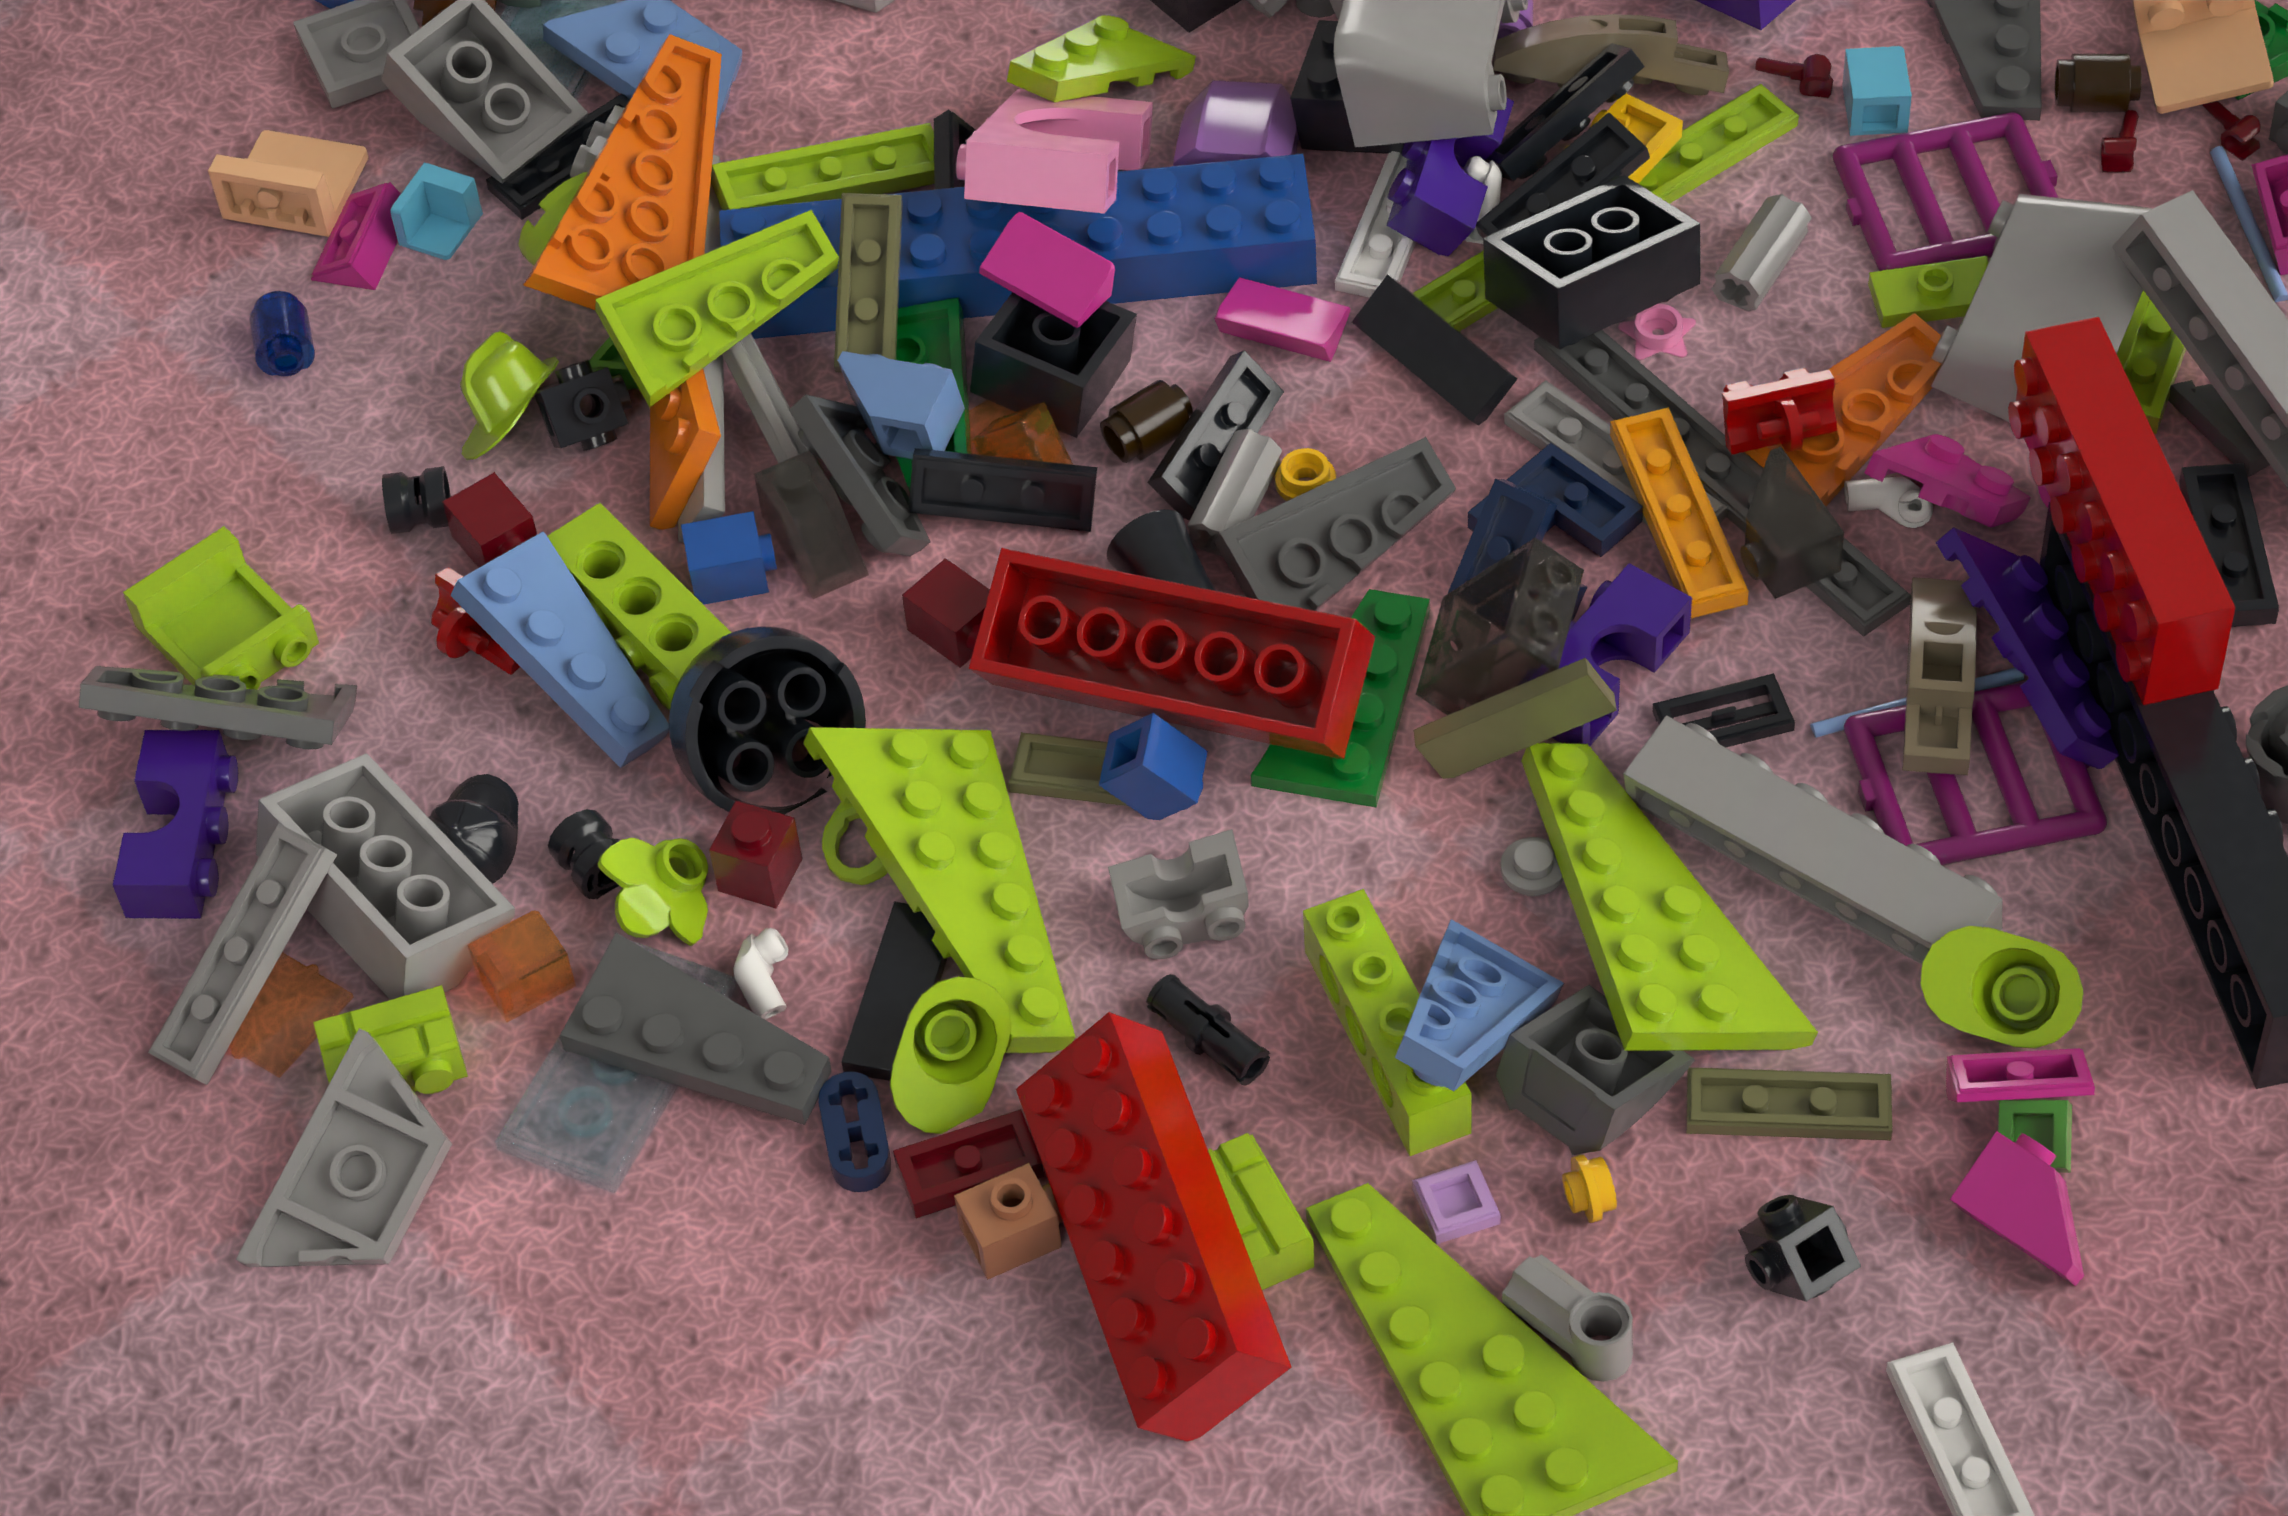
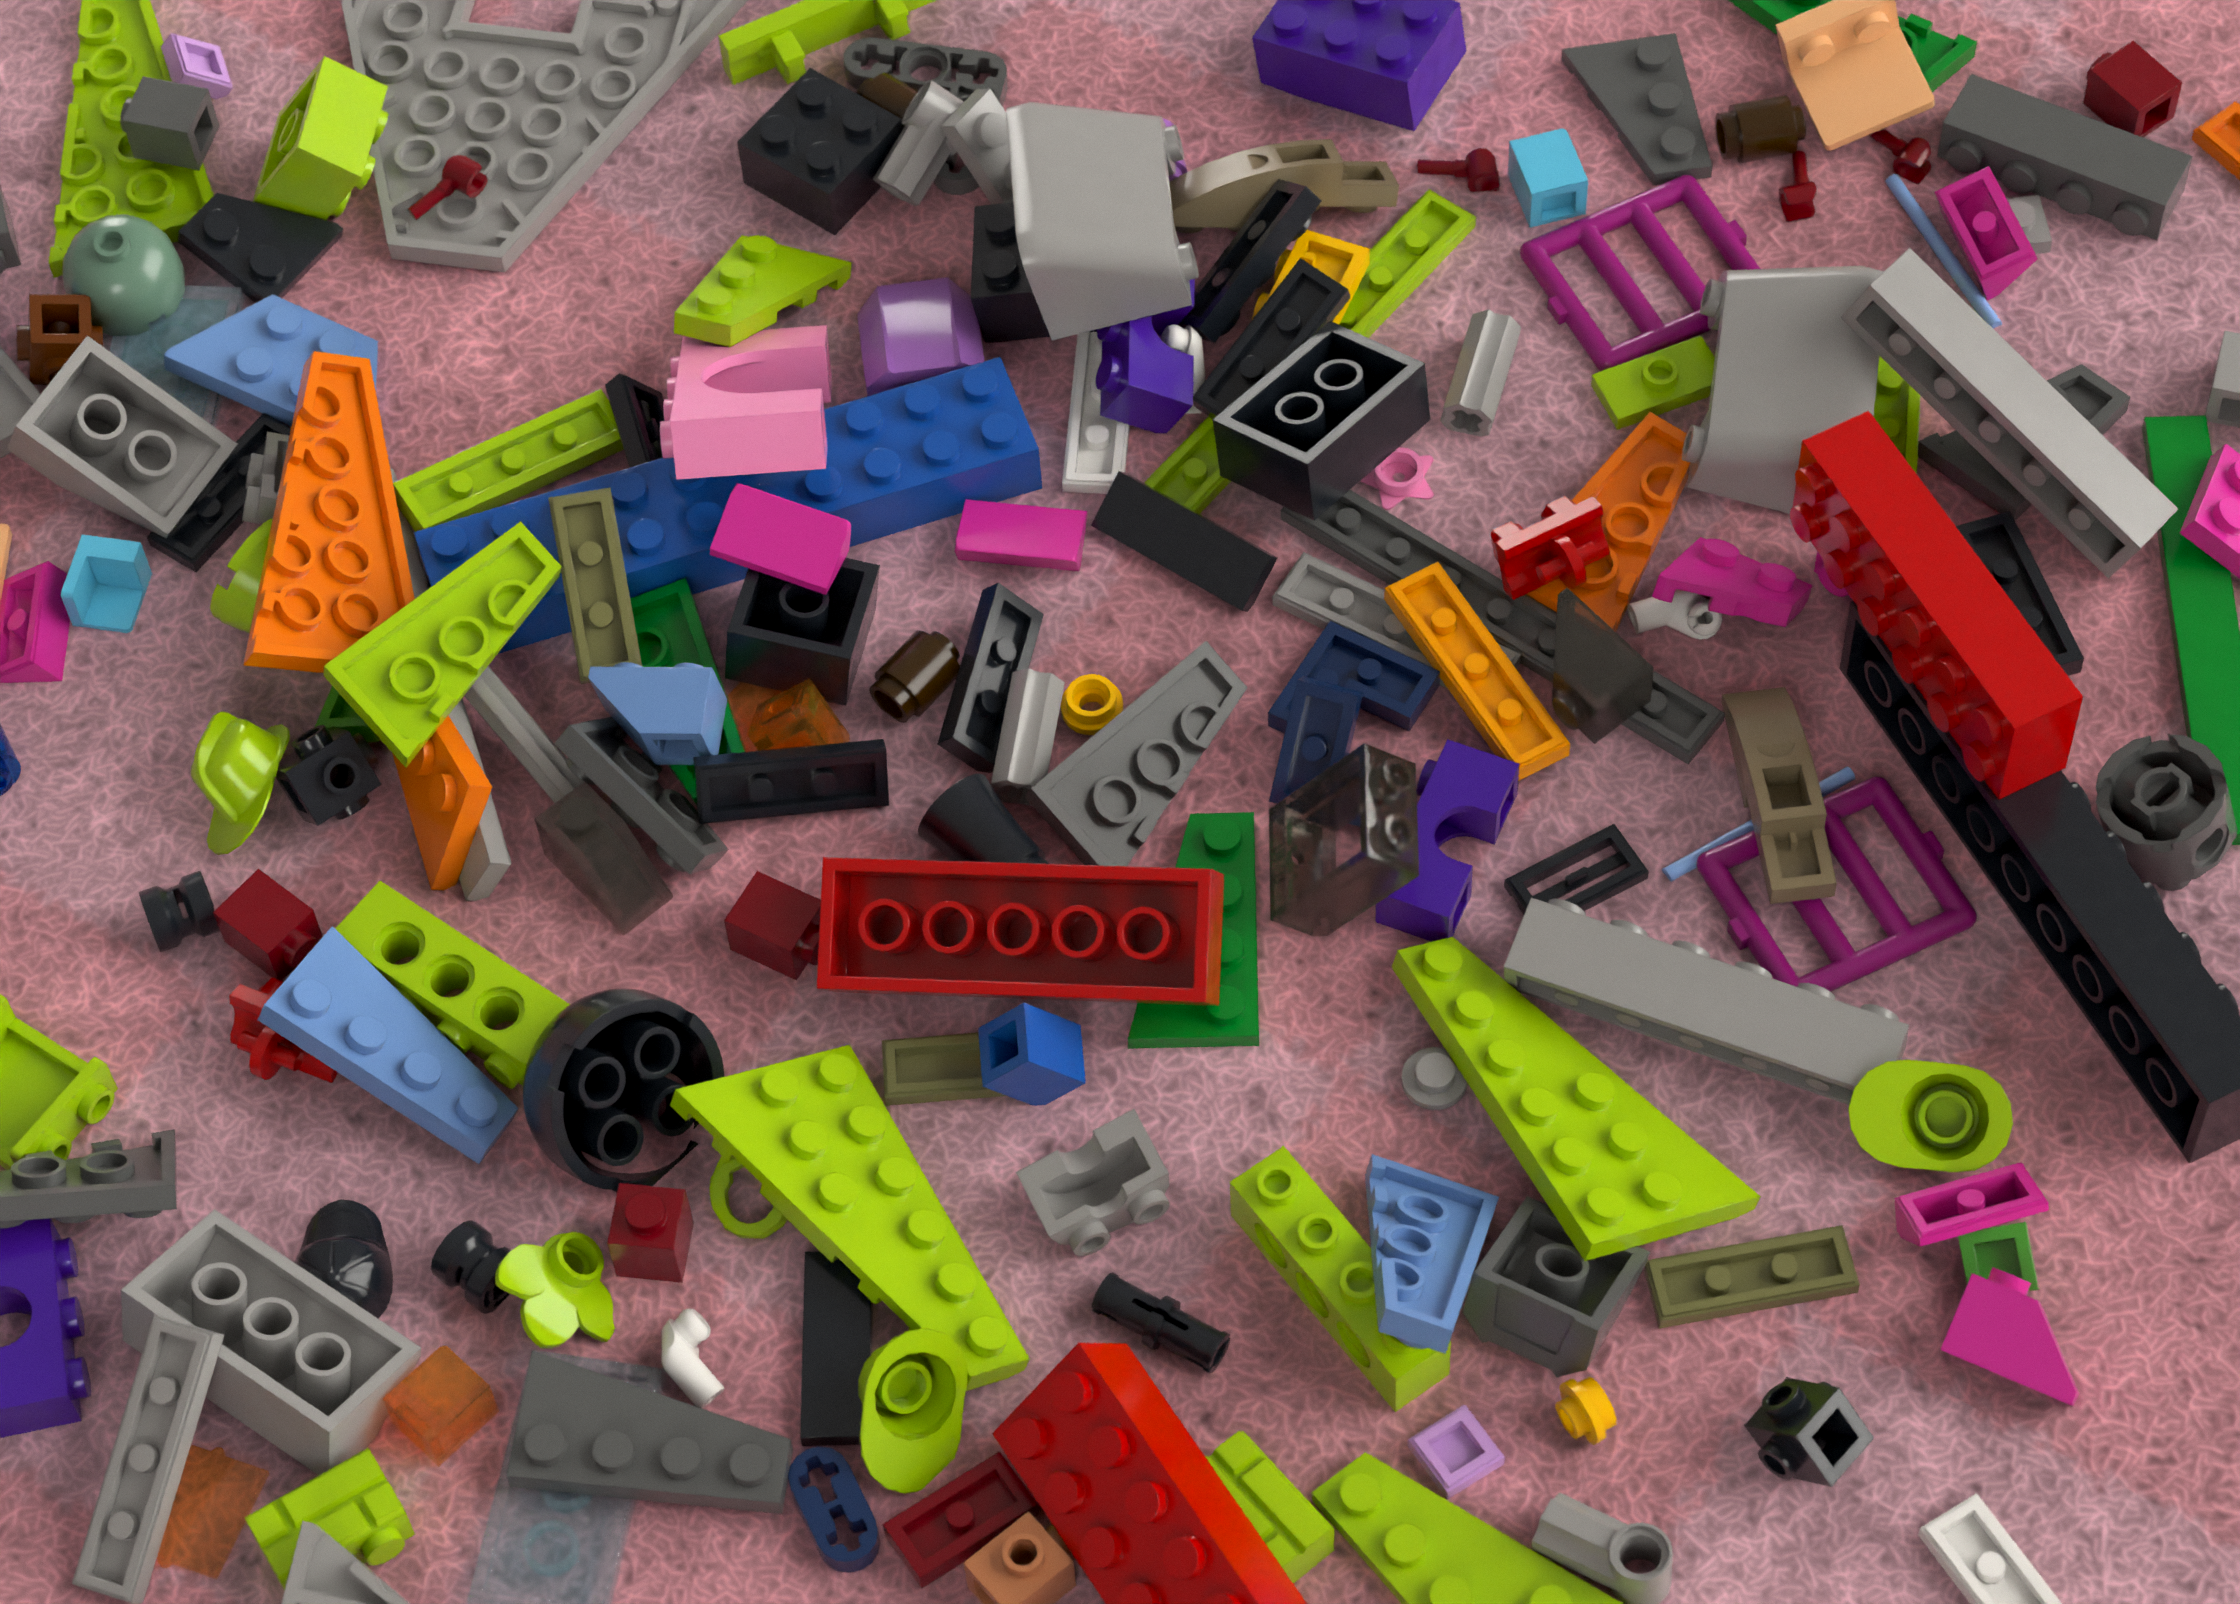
camera: 15 degrees left, 5 degrees up
(727, 557) = (526, 911): blue brick -> none
(1515, 719) = (1382, 931): olive tile -> none
(2035, 644) = (1826, 694): dark purple wing -> none

